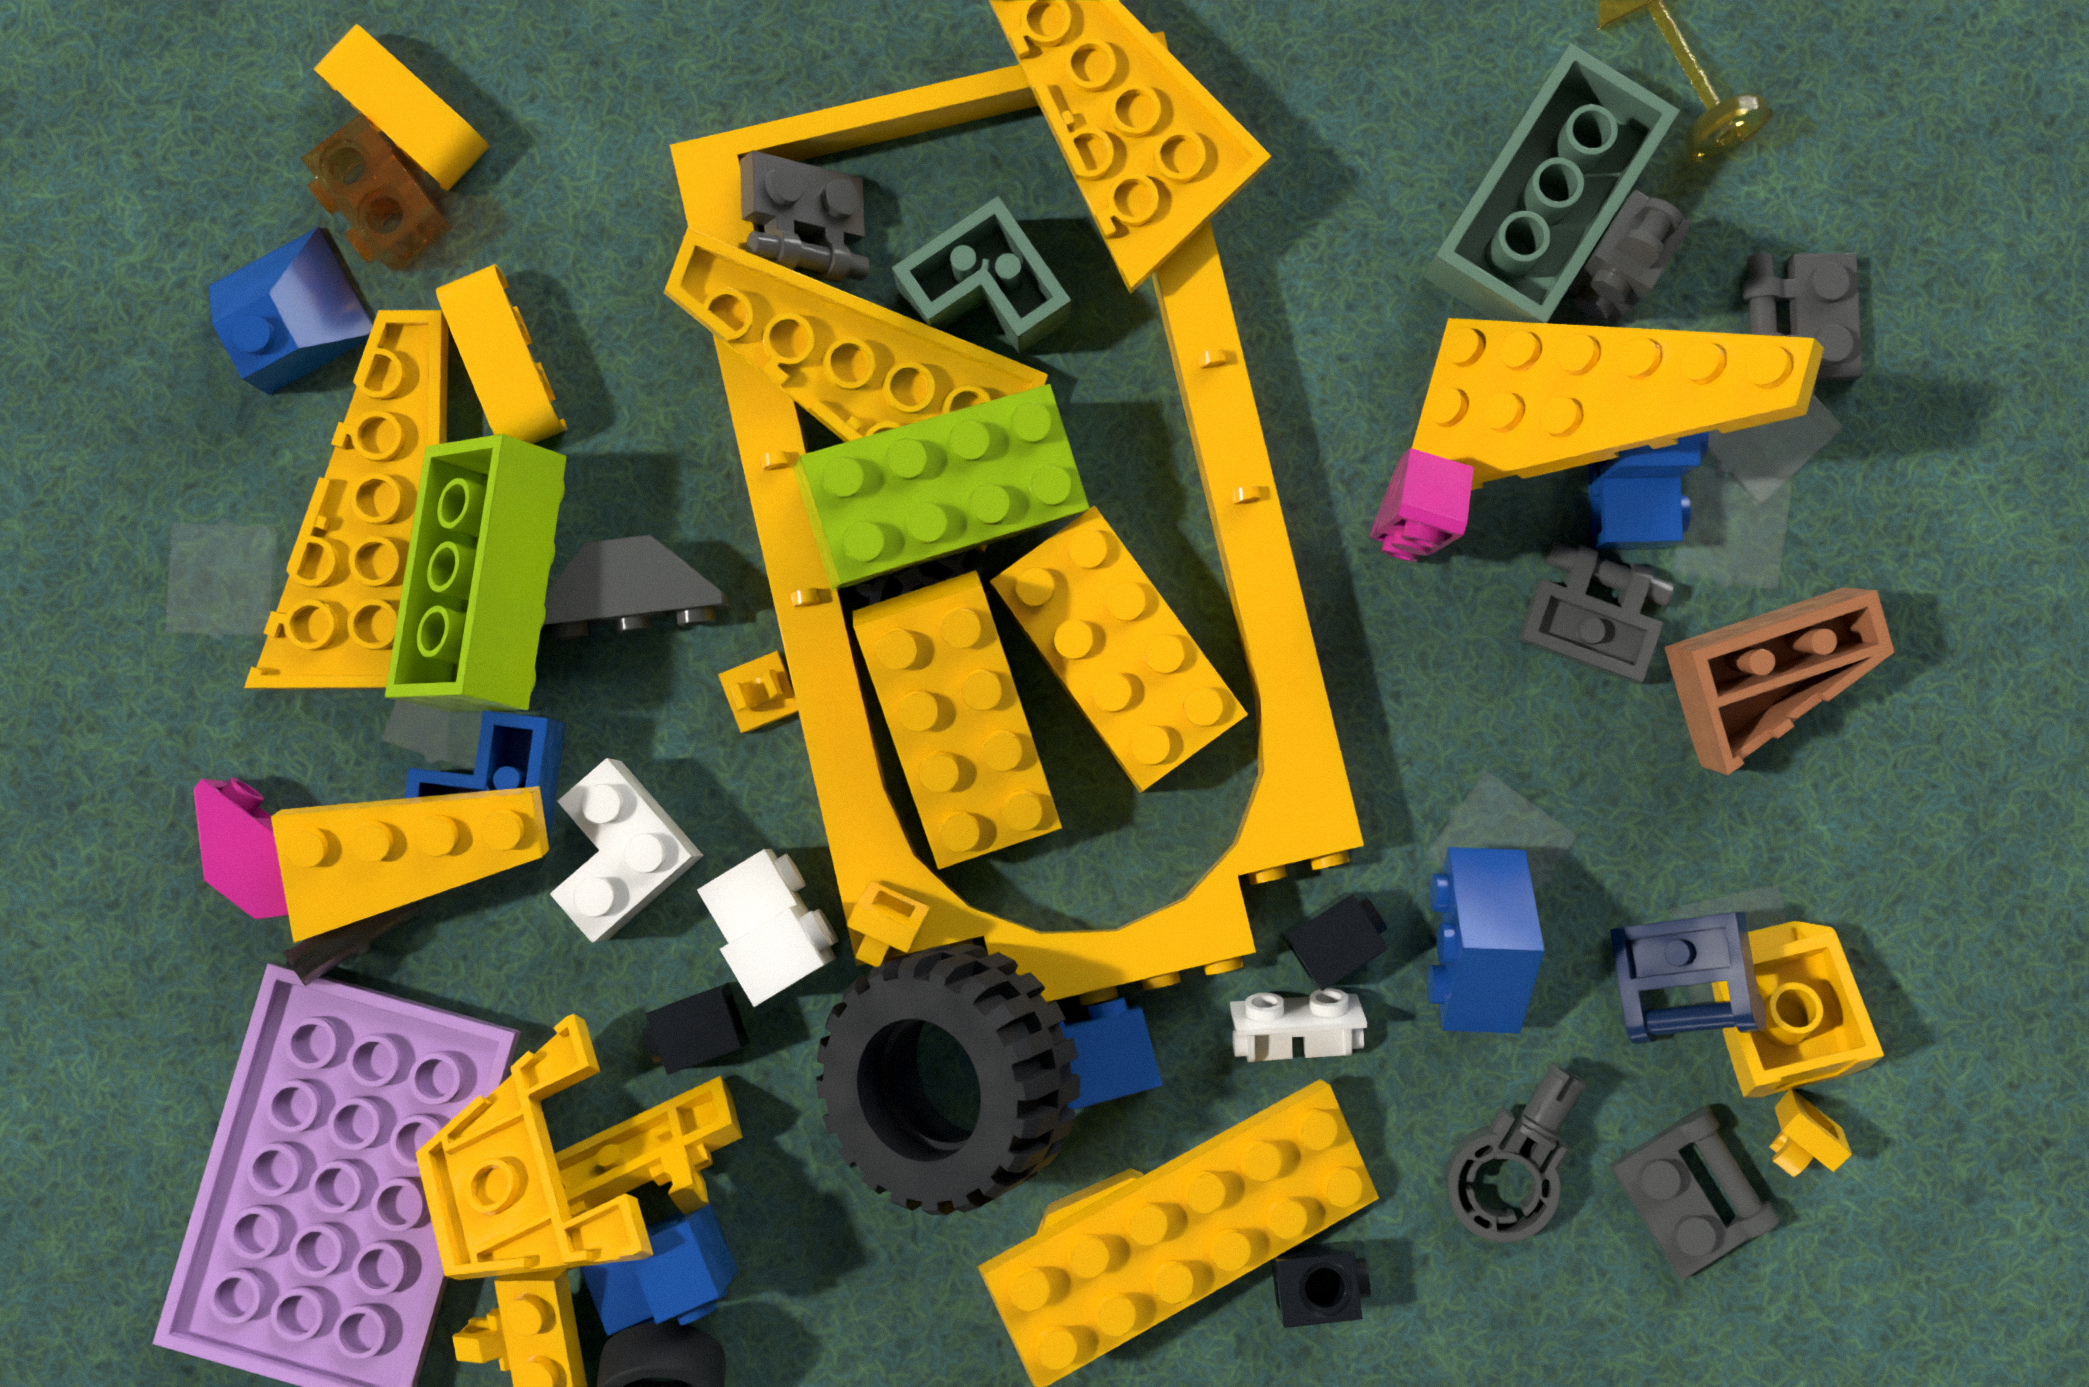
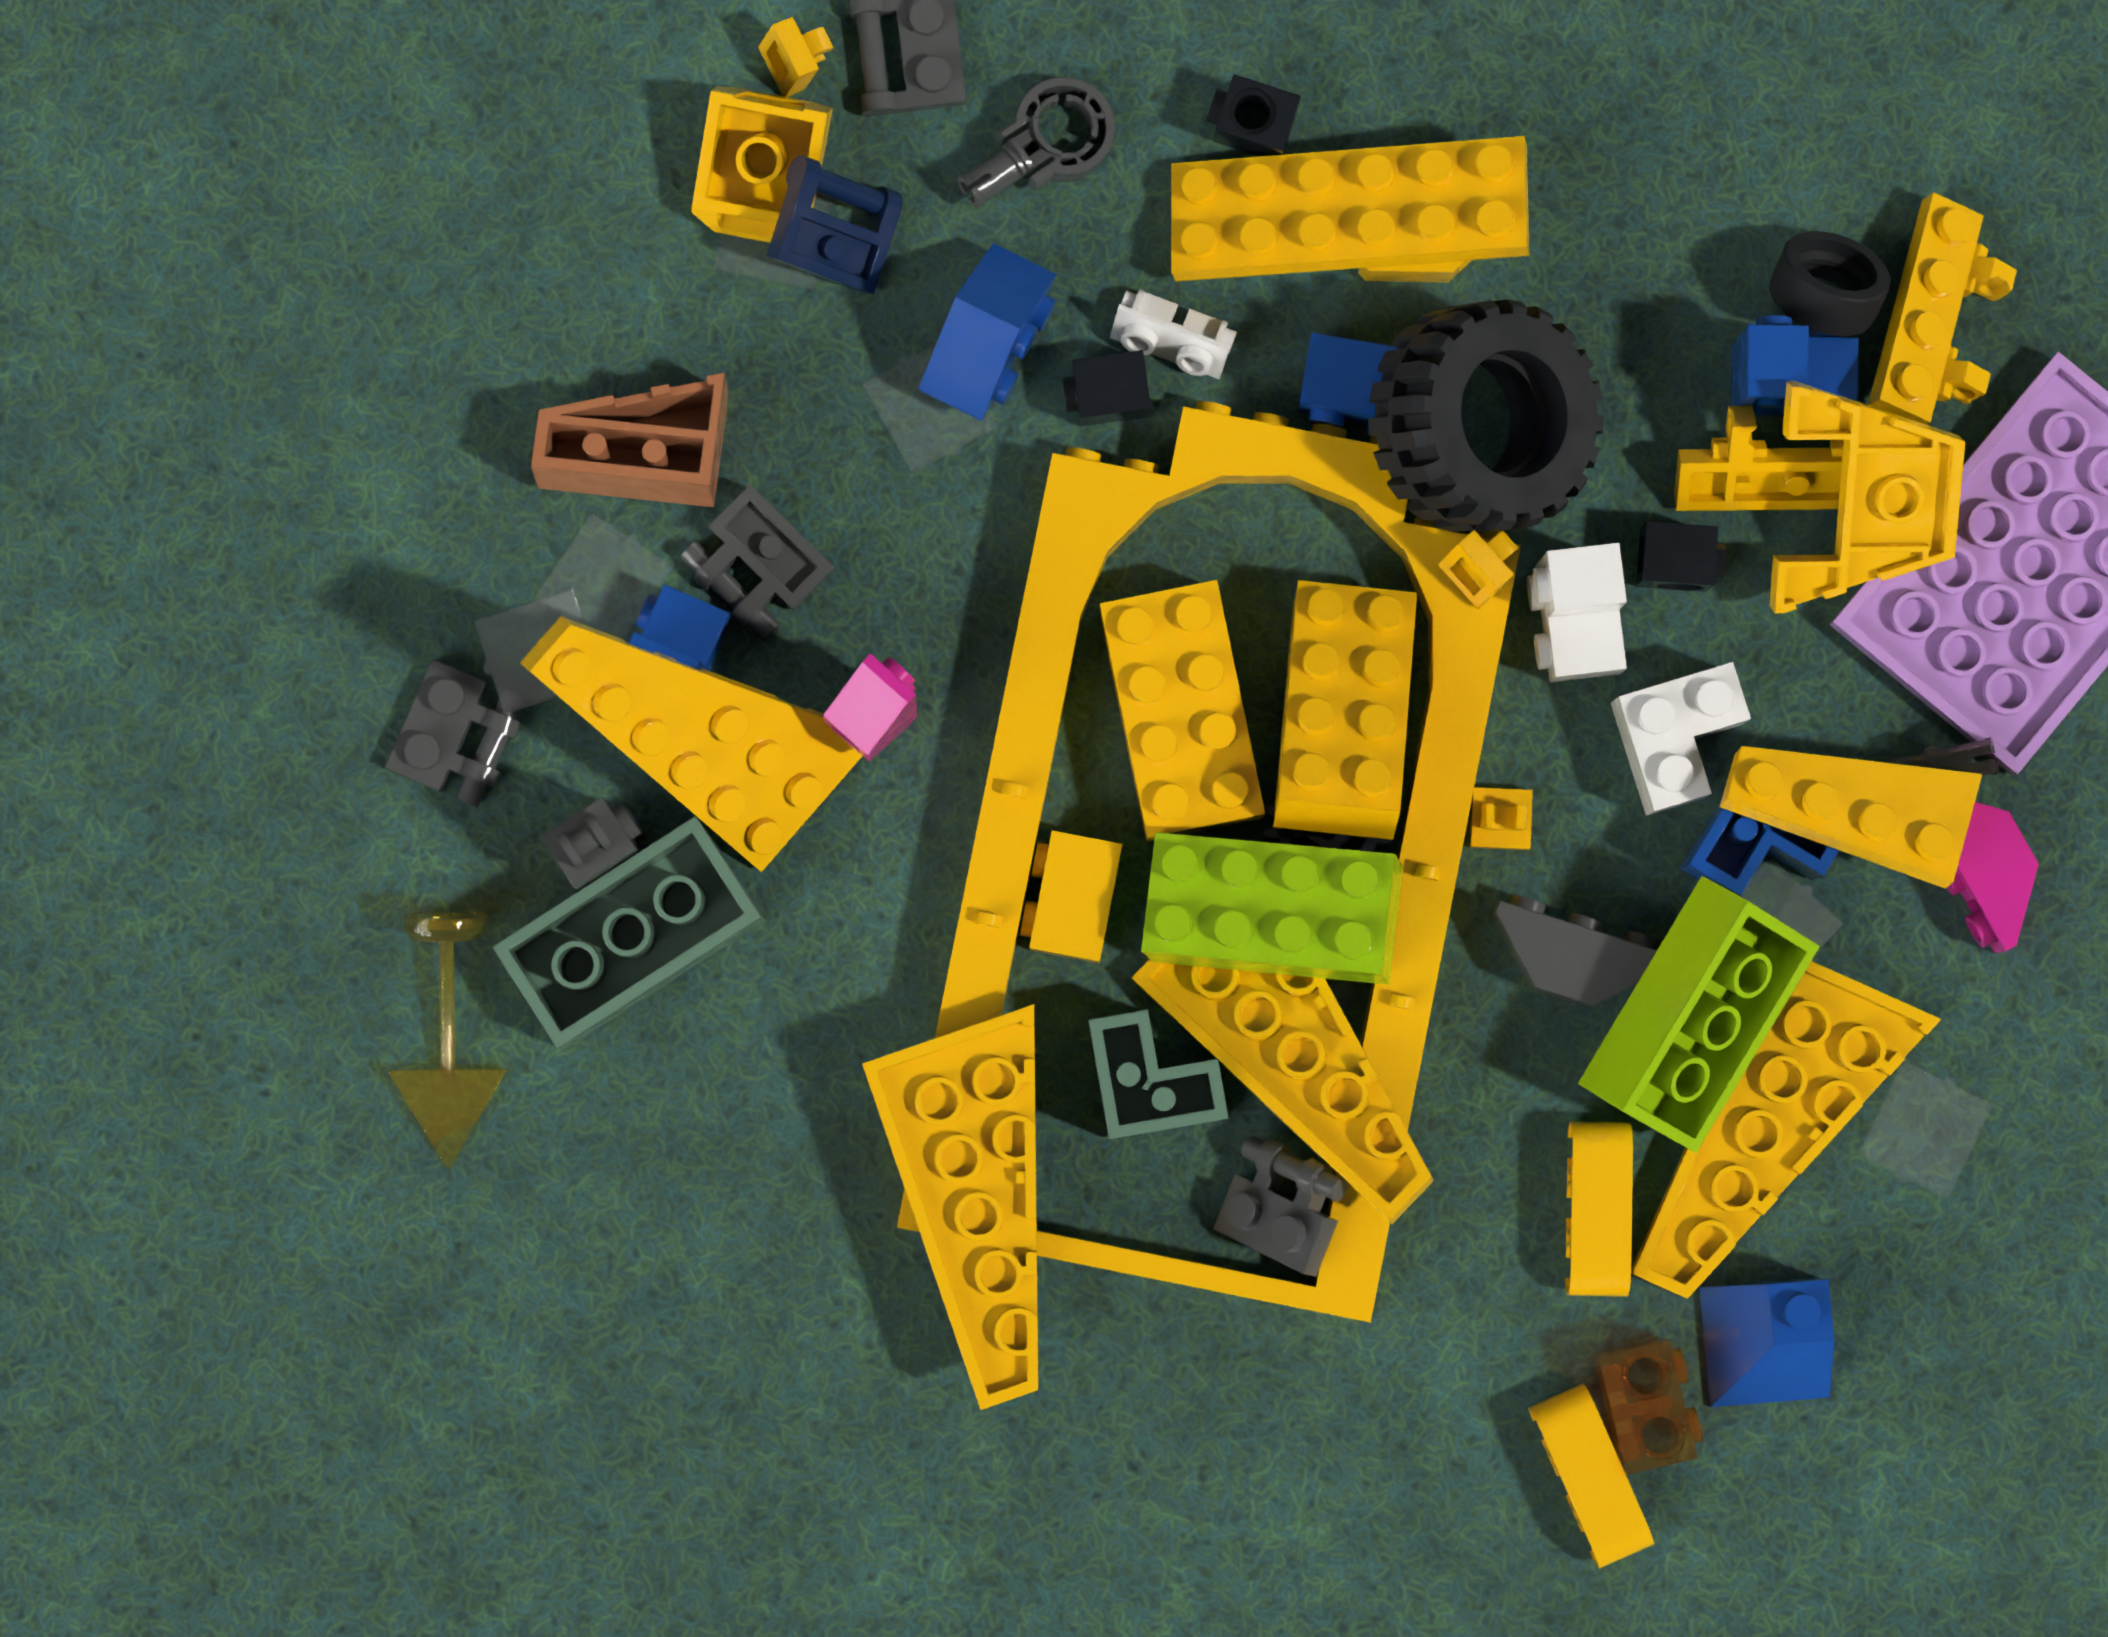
camera: 155 degrees left, 0 degrees up
(1139, 424) = (1073, 896): none -> yellow brick

